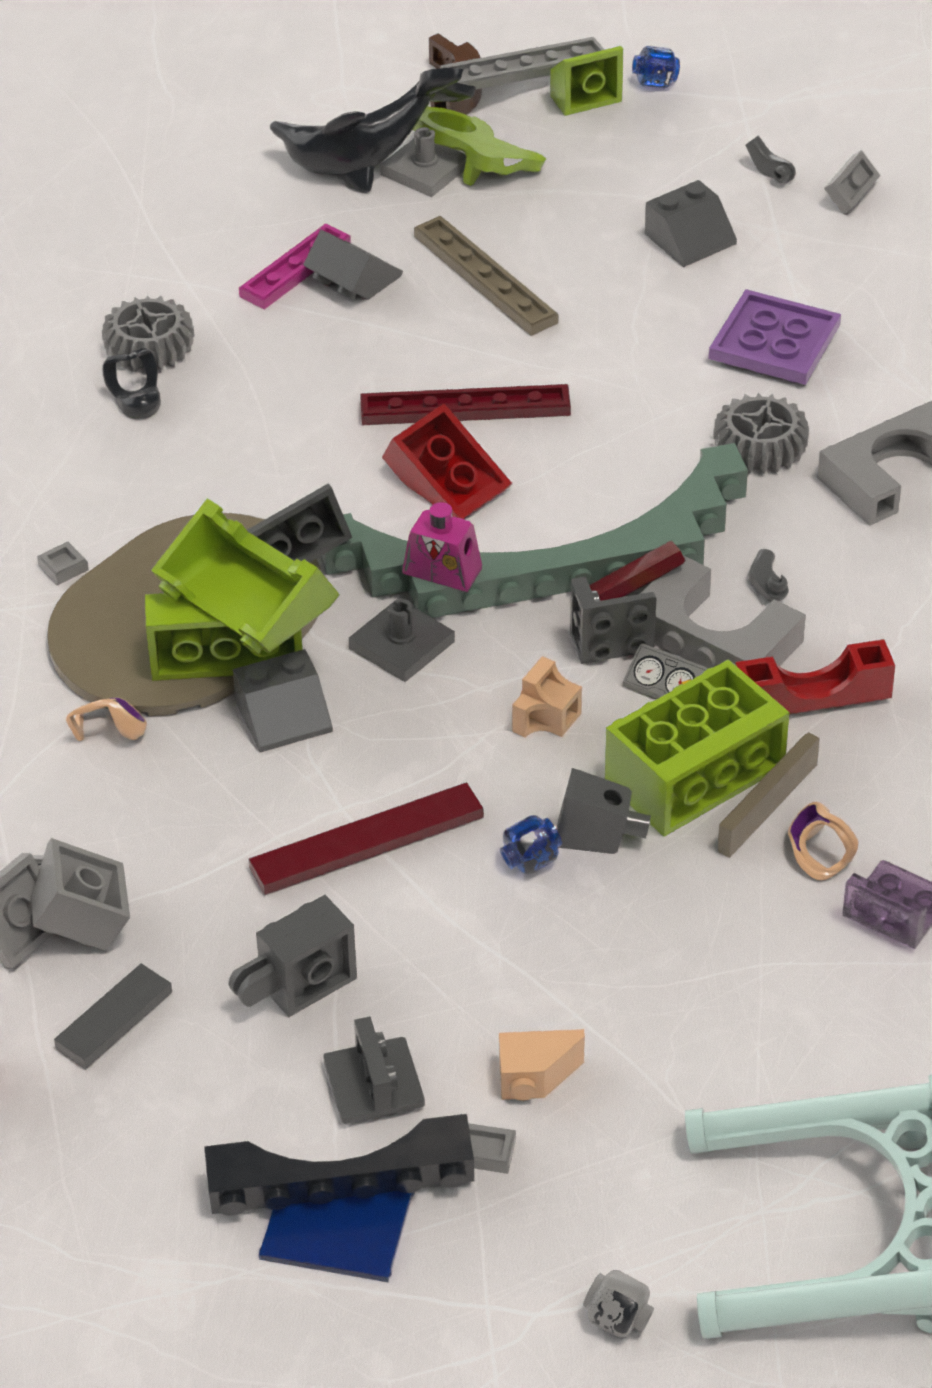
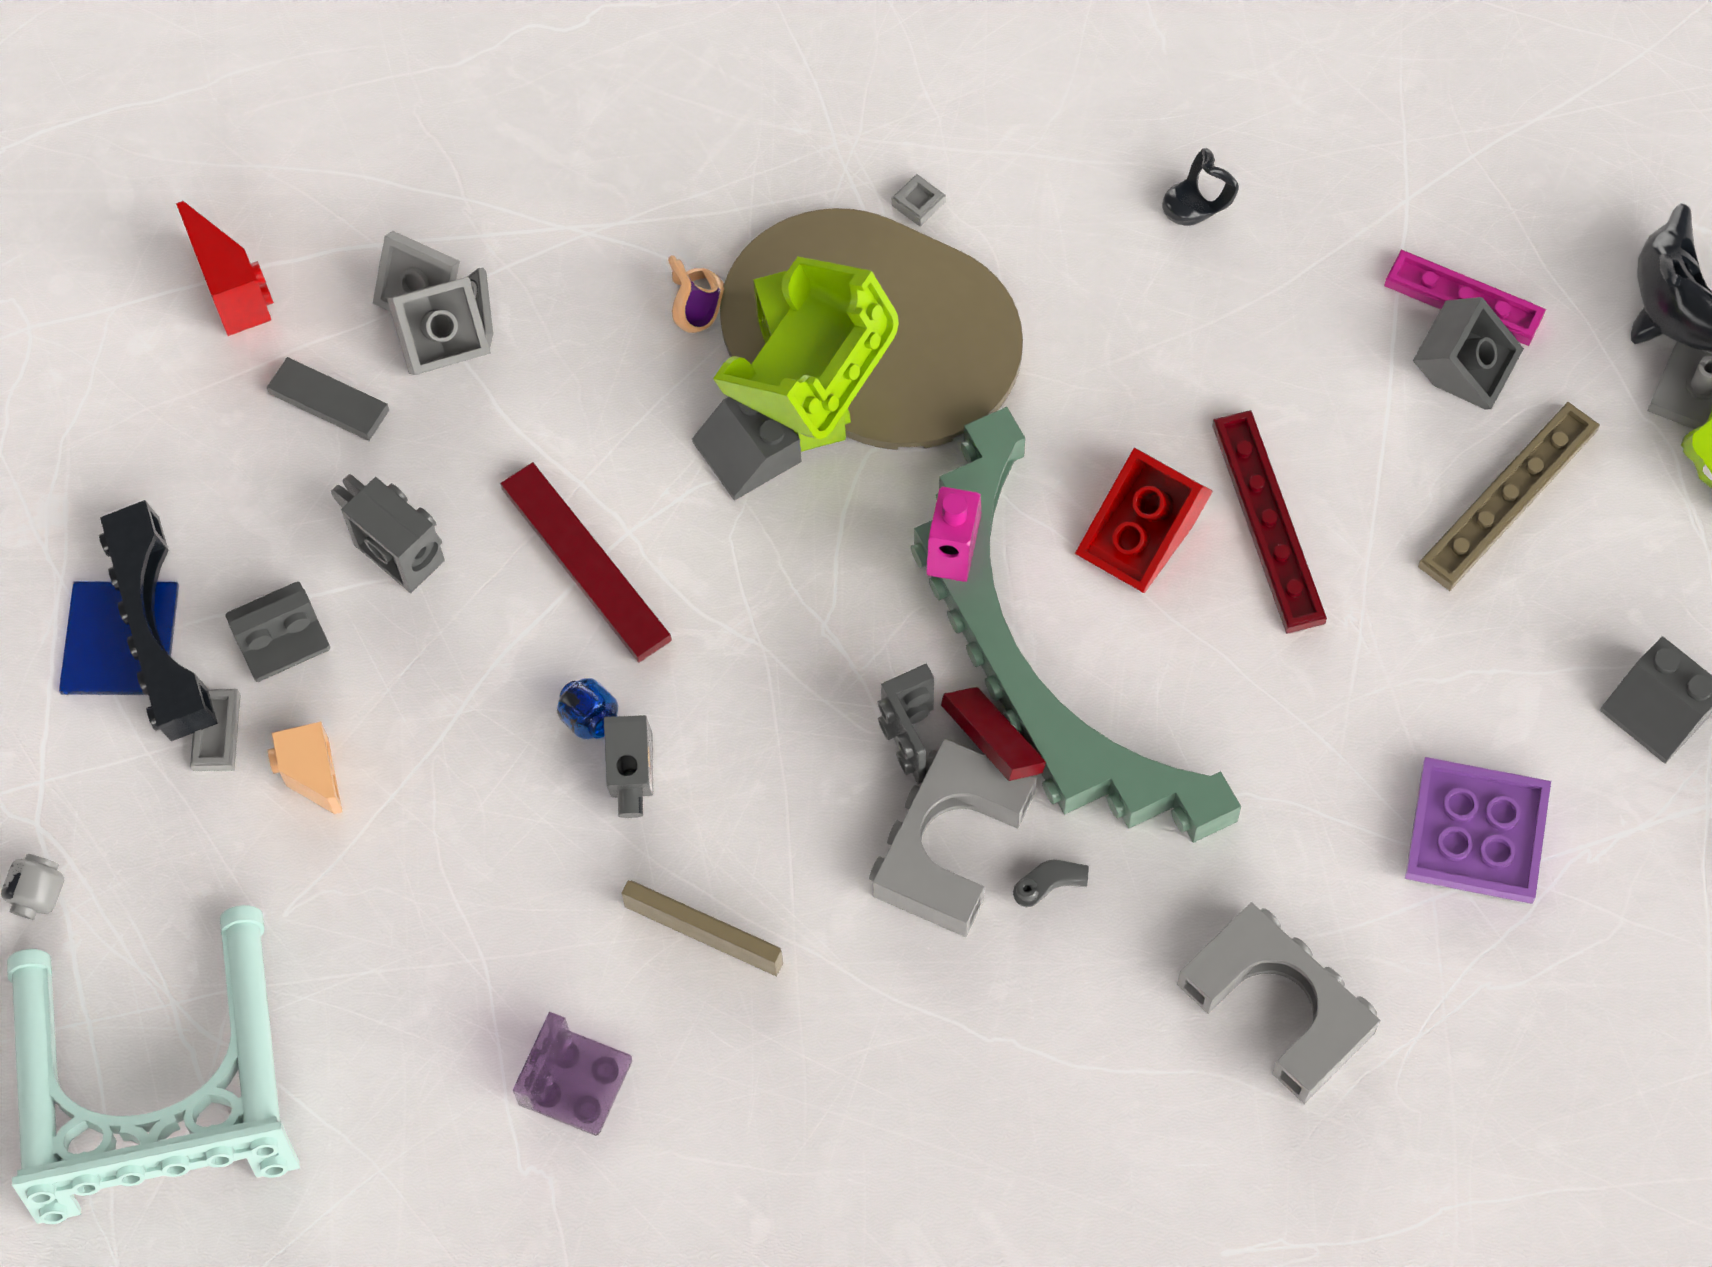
camera: 80 degrees right, 20 degrees up
(151, 325) = (1287, 193): light grey gear -> none
(306, 527) = (953, 383): dark grey slope -> none
(401, 639) = (872, 534): dark grey tile -> none
(546, 701) = (794, 684): light nougat brick -> none
(659, 672) = (863, 801): slope -> none
(696, 746) = (738, 838): lime brick -> none
(764, 431) = (1304, 838): light grey gear -> none
(809, 823) = (657, 970): light nougat piece -> none
(857, 676) = (868, 944): red arch -> none

